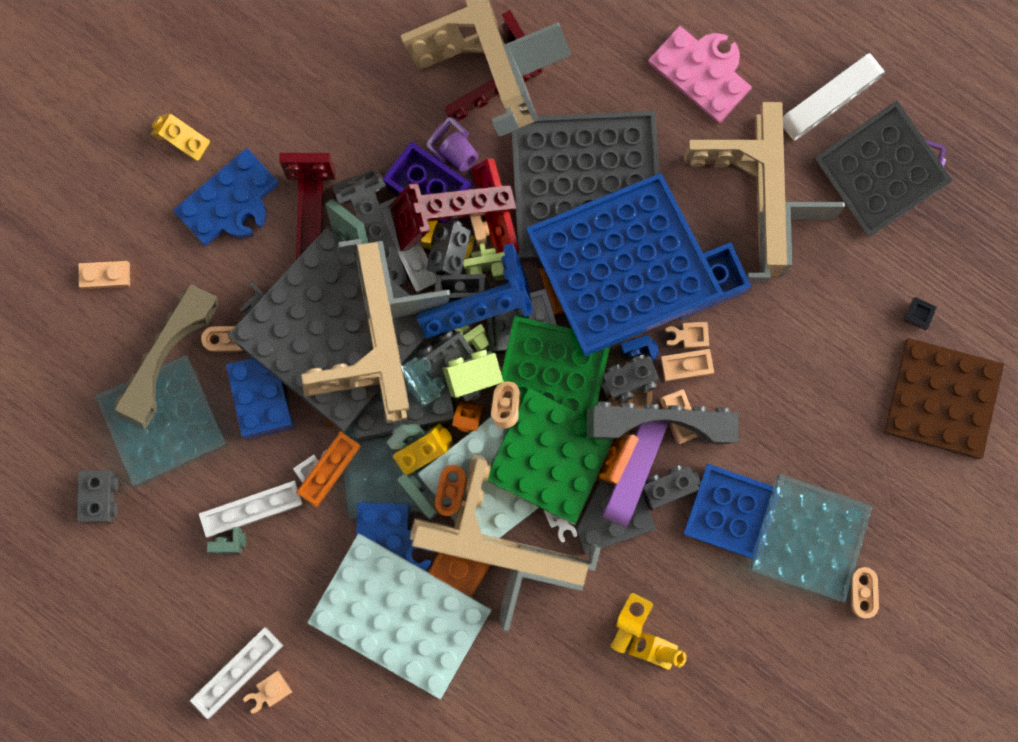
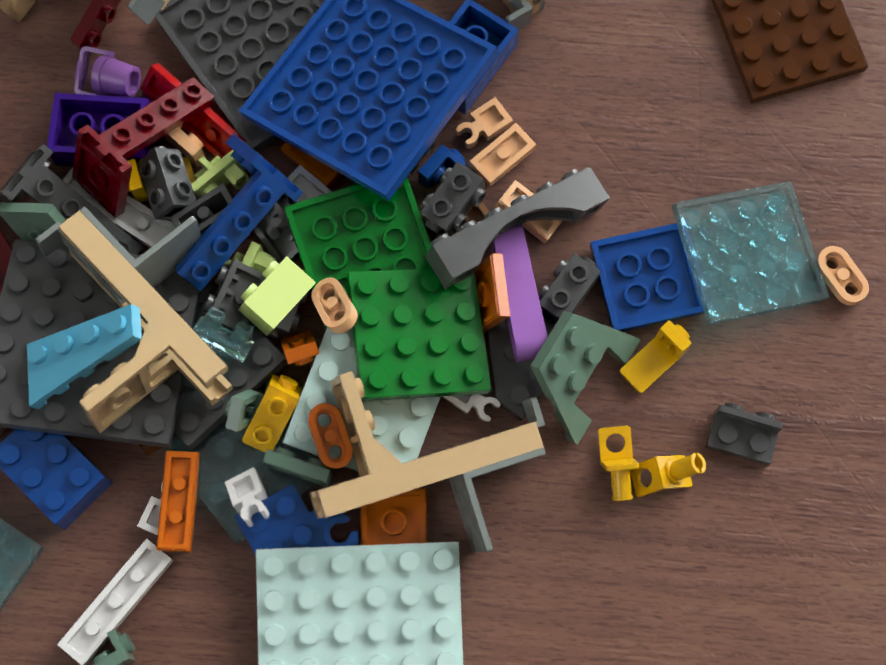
camera: 30 degrees left, 5 degrees down
(321, 335) = (77, 350): none -> medium azure wing
(374, 492) = (247, 495): none -> white plate
(638, 537) = (568, 362): none -> sand green wing
(700, 569) = (656, 357): none -> yellow bracket
(725, 657) = (743, 433): none -> dark grey bracket

